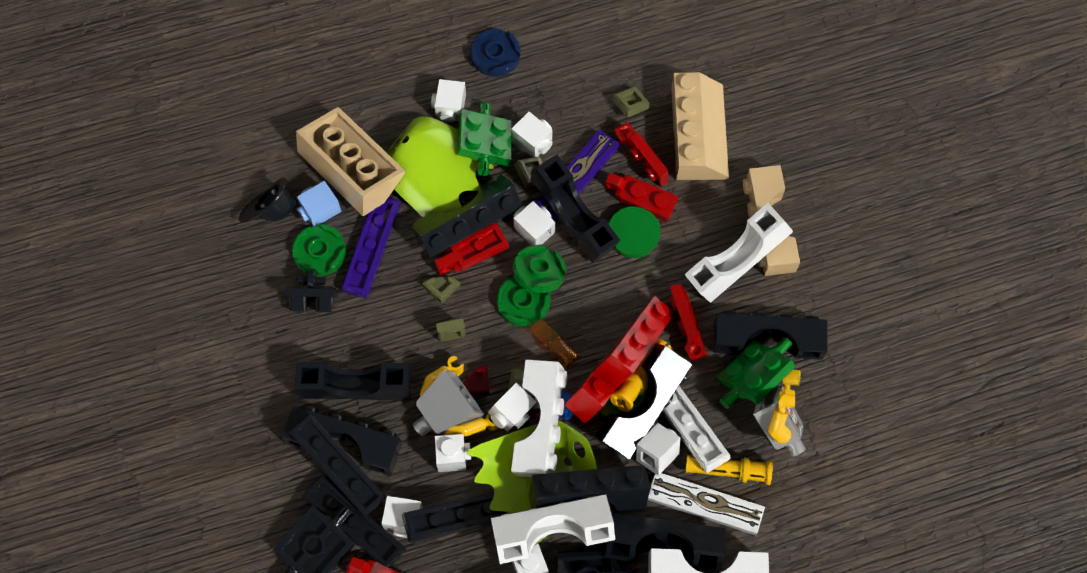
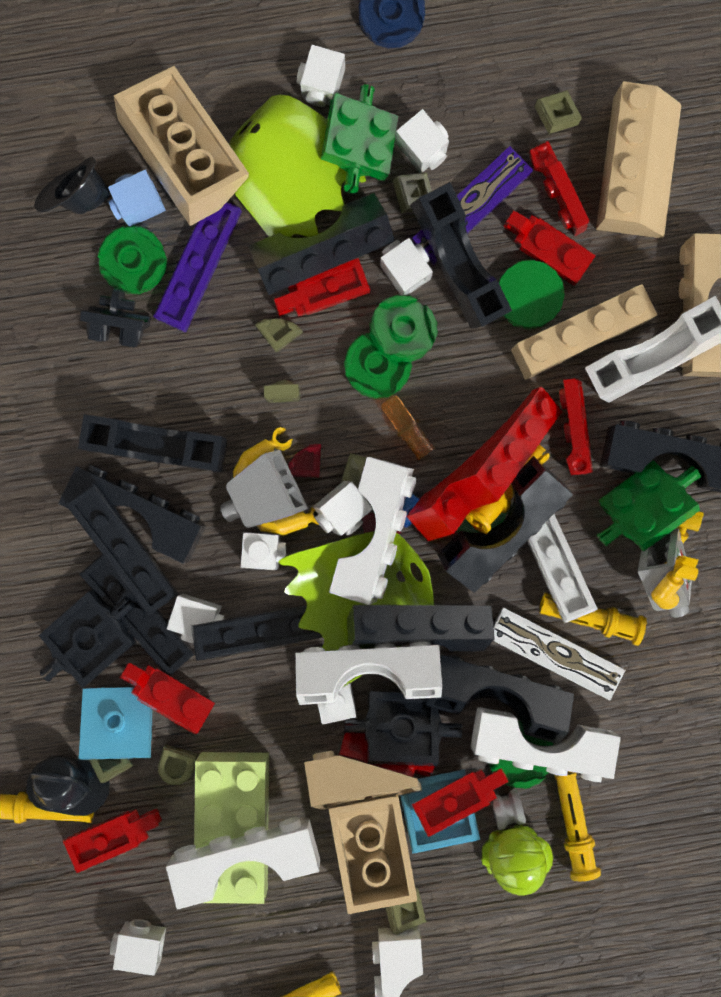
camera: 10 degrees right, 20 degrees up
(658, 448) = (512, 584): white brick -> none
(696, 239) = (583, 331): none -> tan arch

